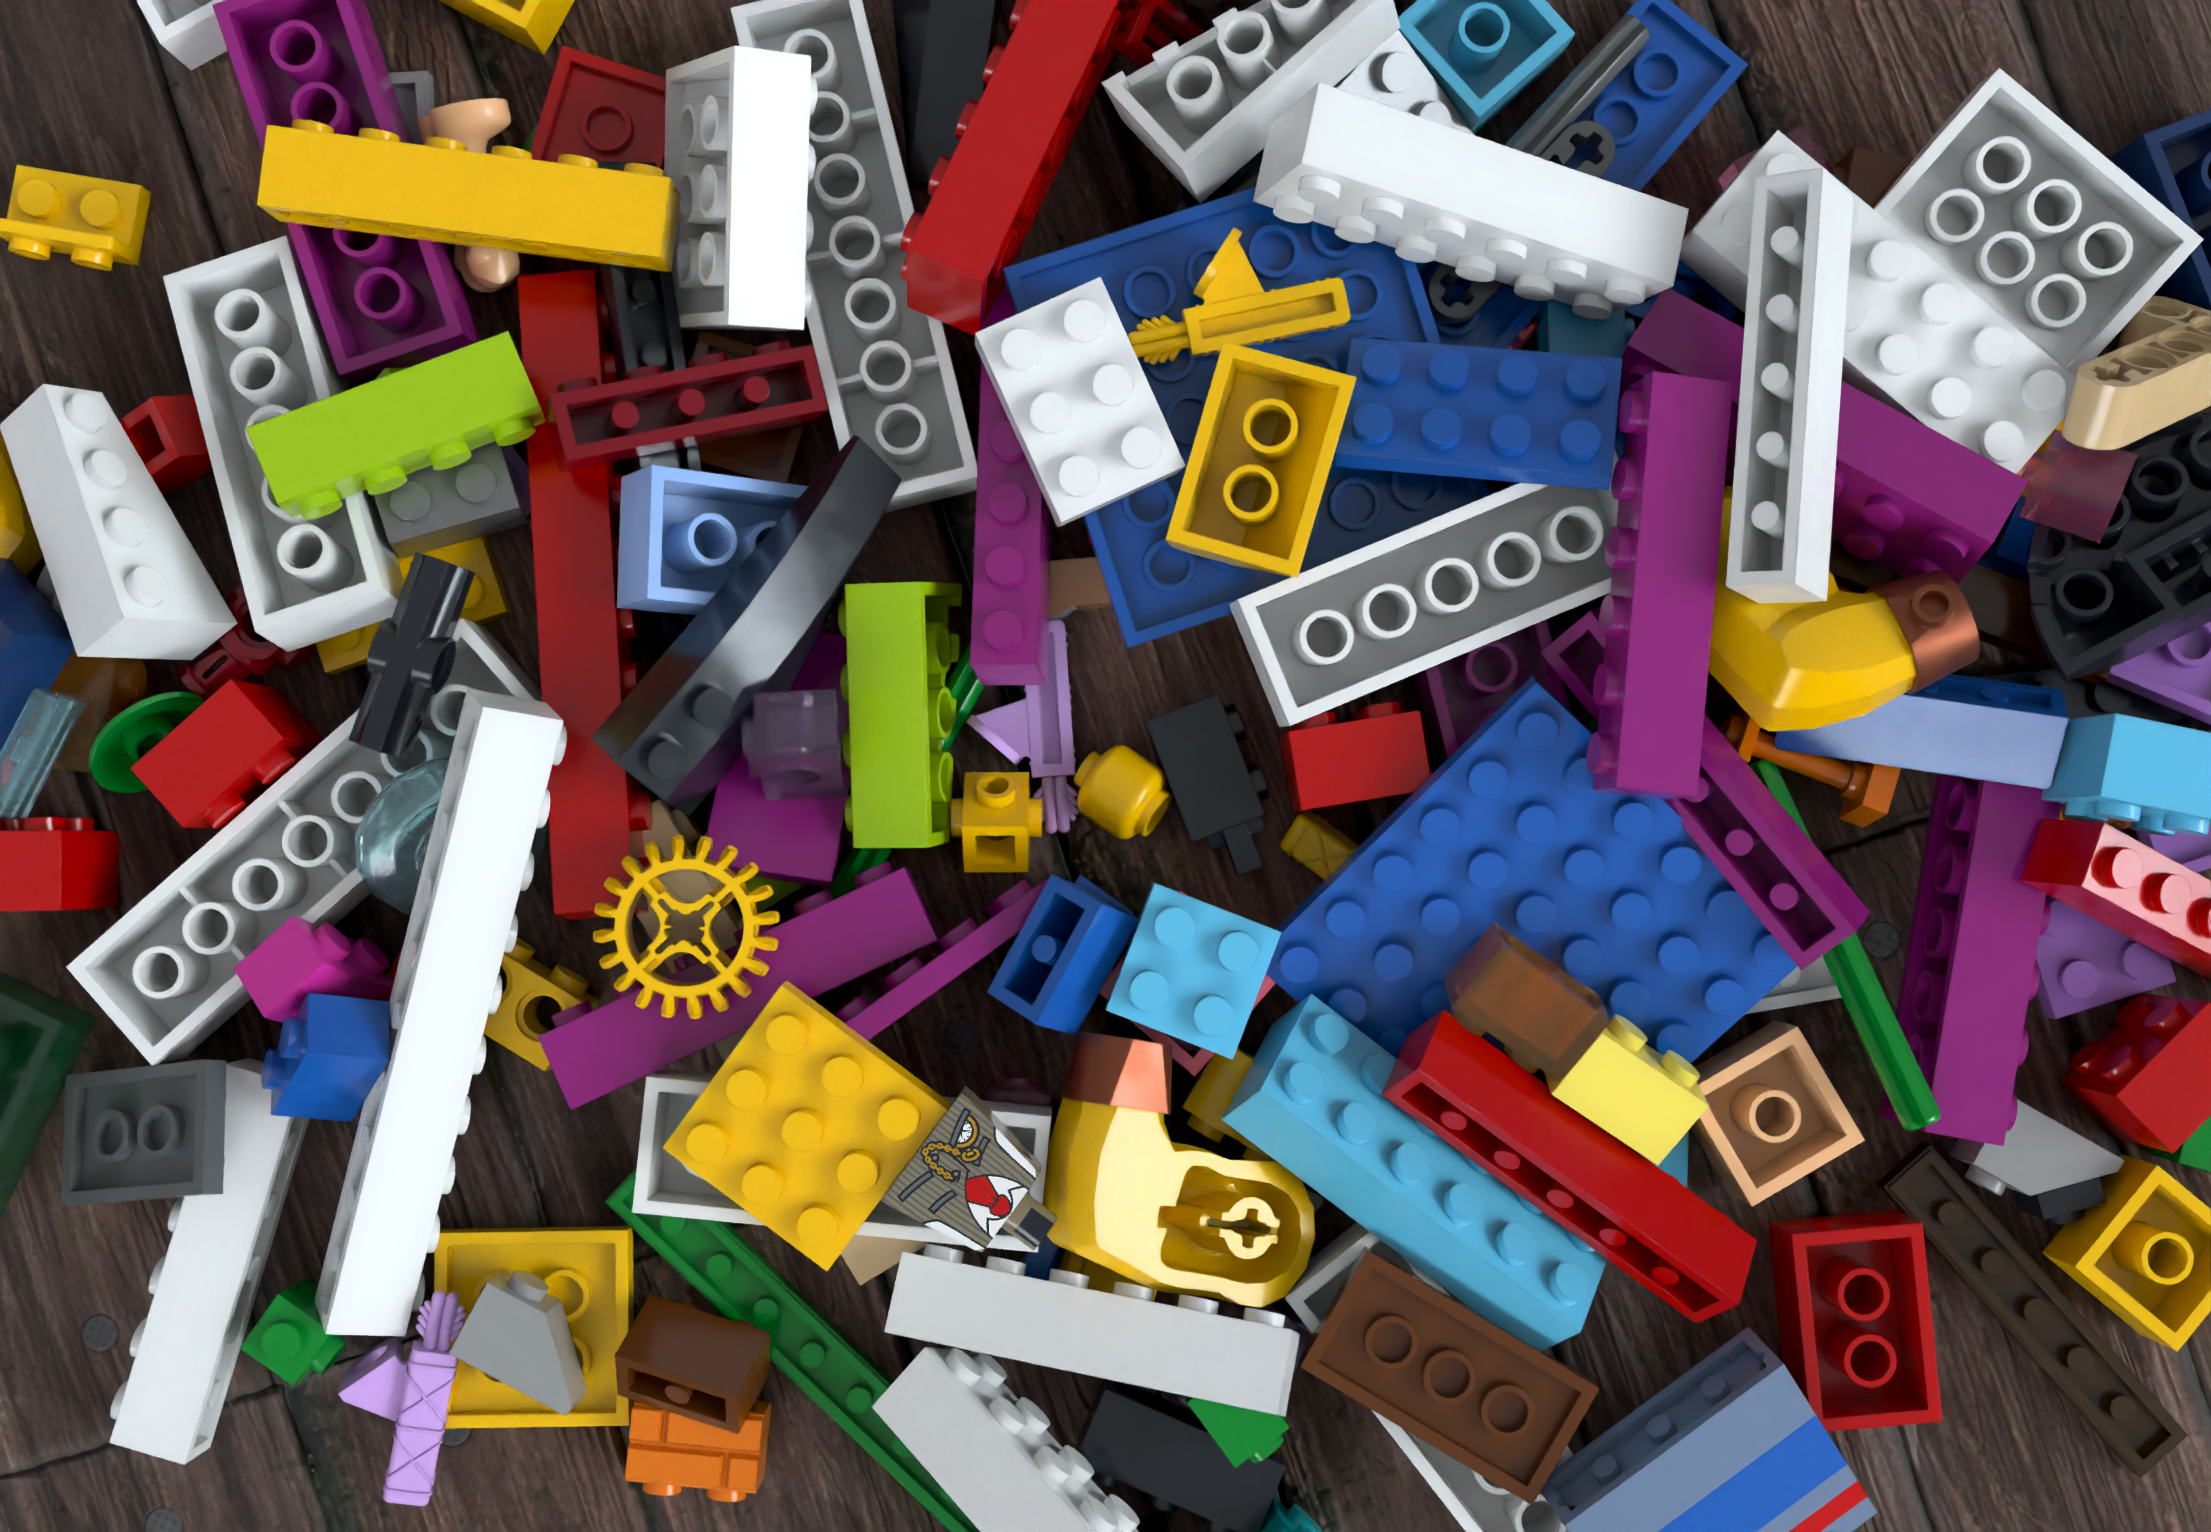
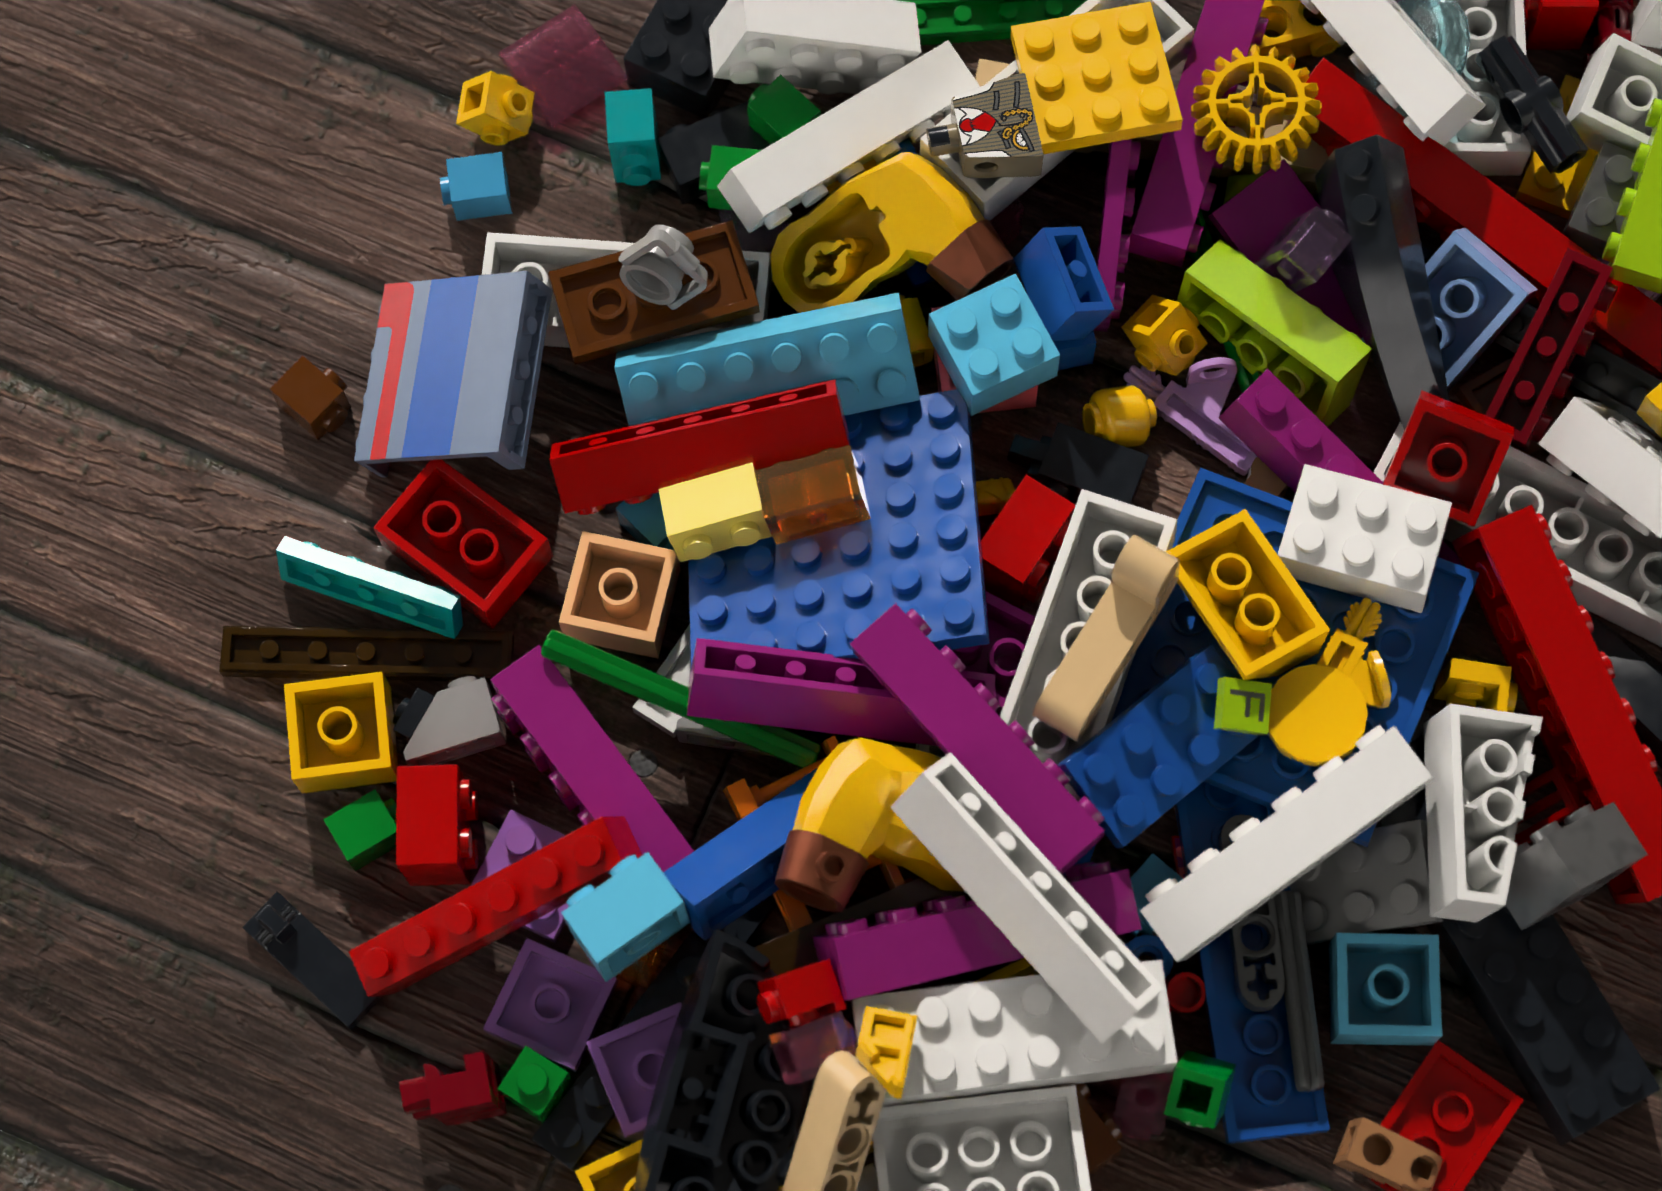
camera: 140 degrees right, 15 degrees down
(909, 395) = (1450, 455): none -> red brick
(1098, 184) = (1477, 684): none -> yellow bracket
(1123, 1431) = (779, 110): none -> green brick
(1309, 293) = (1316, 714): none -> yellow tile
(1378, 362) = (1242, 706): none -> lime tile
(1433, 1387) = (657, 265): none -> light grey piece
(1445, 546) = (1110, 637): none -> tan beam
(1732, 119) = (1199, 1090): none -> green brick
(1986, 1393) = (370, 587): none -> teal plate
(2047, 397) = (886, 1047): none -> yellow tile
(2048, 544) = (800, 994): none -> red brick

